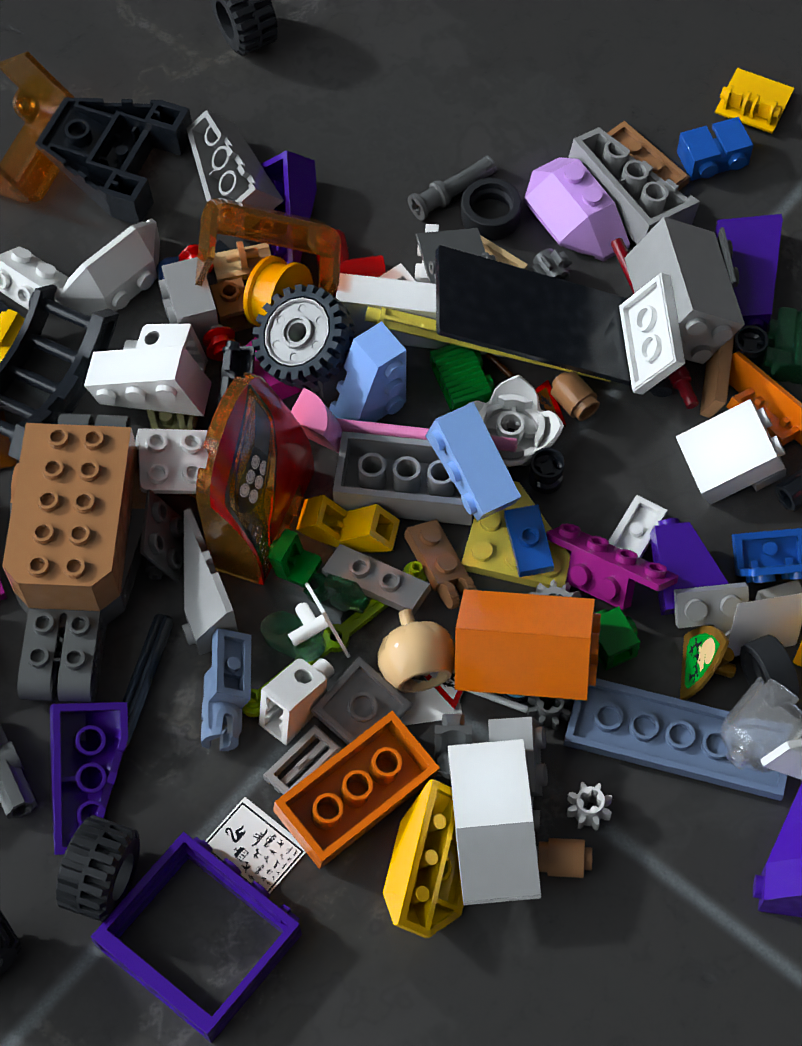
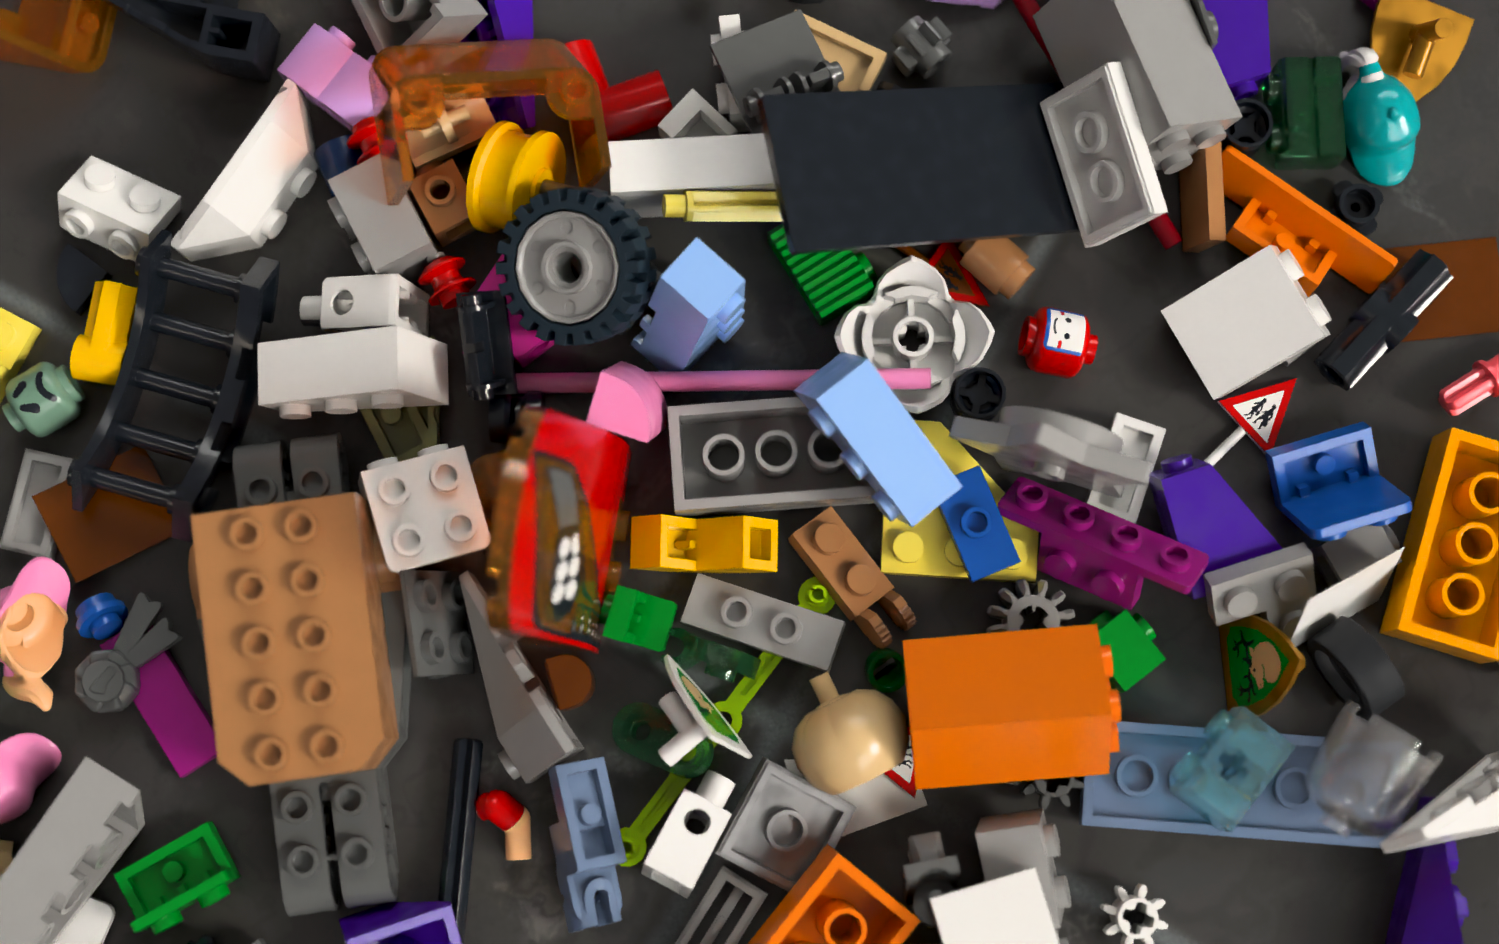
camera: 10 degrees left, 20 degrees up
(177, 223) = (331, 74): none -> lavender brick
(181, 670) = (511, 818): none -> arm
(241, 590) = (570, 681): none -> reddish brown brick
(447, 615) = (889, 678): none -> dark green hinge
(586, 493) = (1054, 448): none -> light grey plate
(605, 447) = (1057, 342): none -> red head
(662, 731) = (1257, 758): none -> clear light blue brick
(731, 517) = (1258, 416): none -> piece

